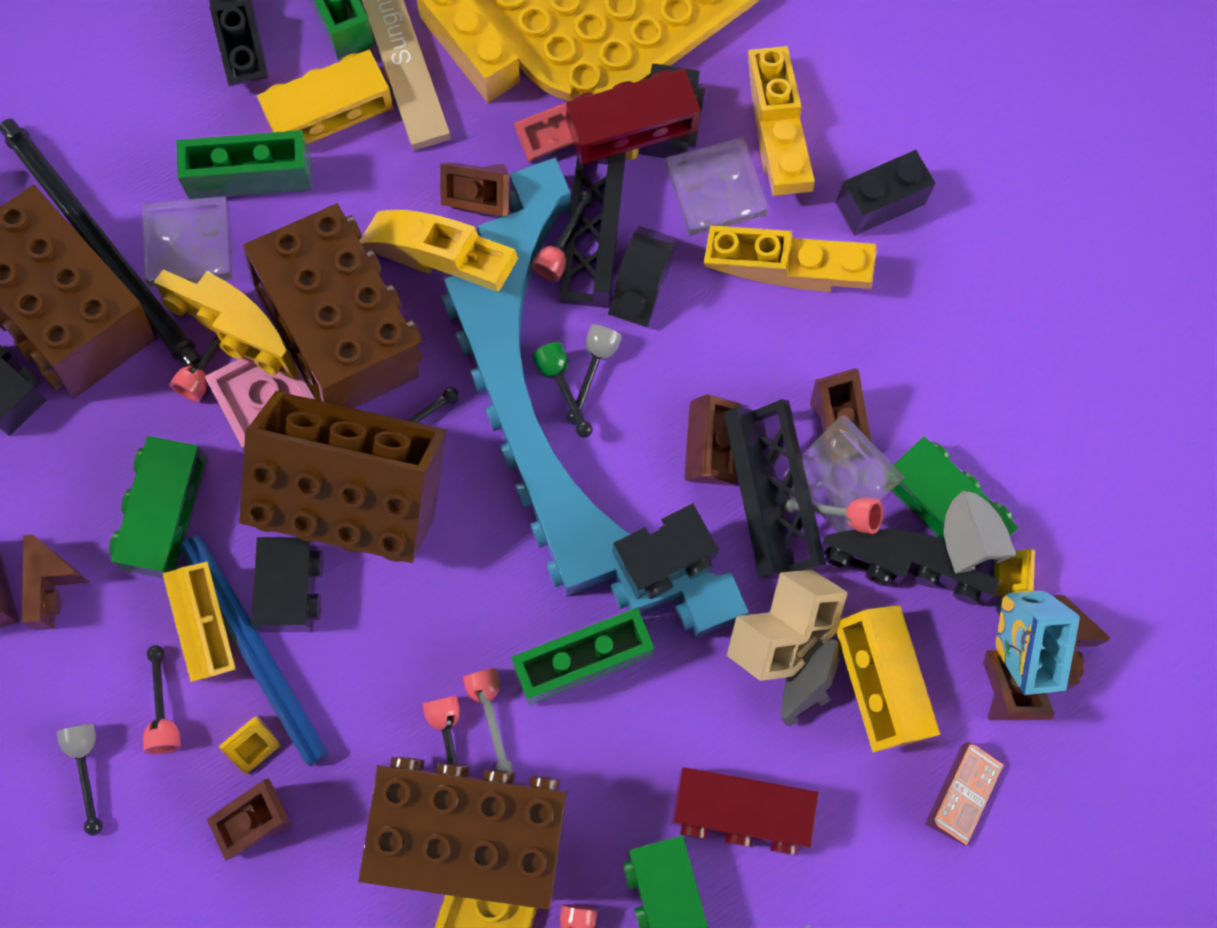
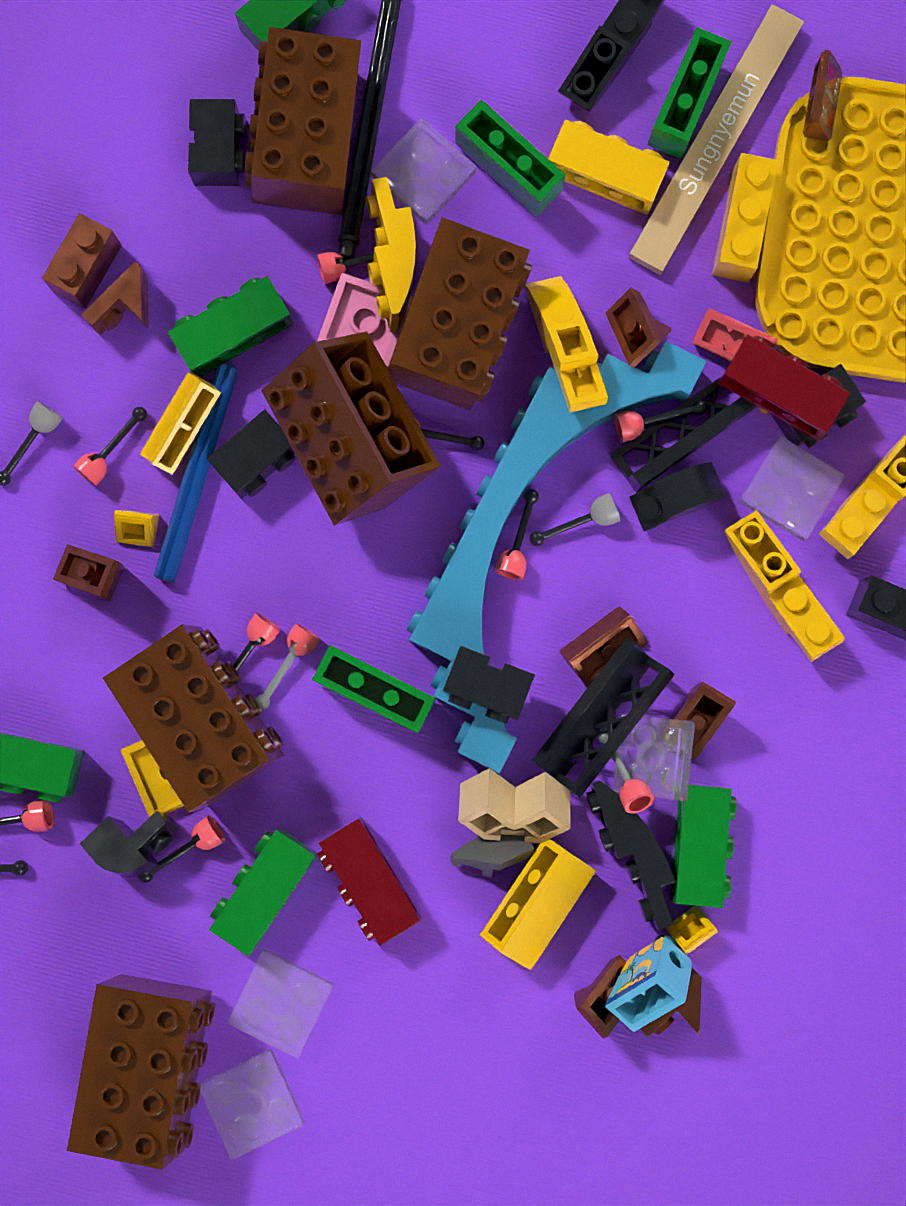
camera: 50 degrees right, 10 degrees up
(553, 362) = (559, 490): hinge -> none
(577, 451) = (512, 562): none -> hinge
(964, 793) = (508, 1018): slope -> none
(975, 533) = (689, 882): light grey brick -> none

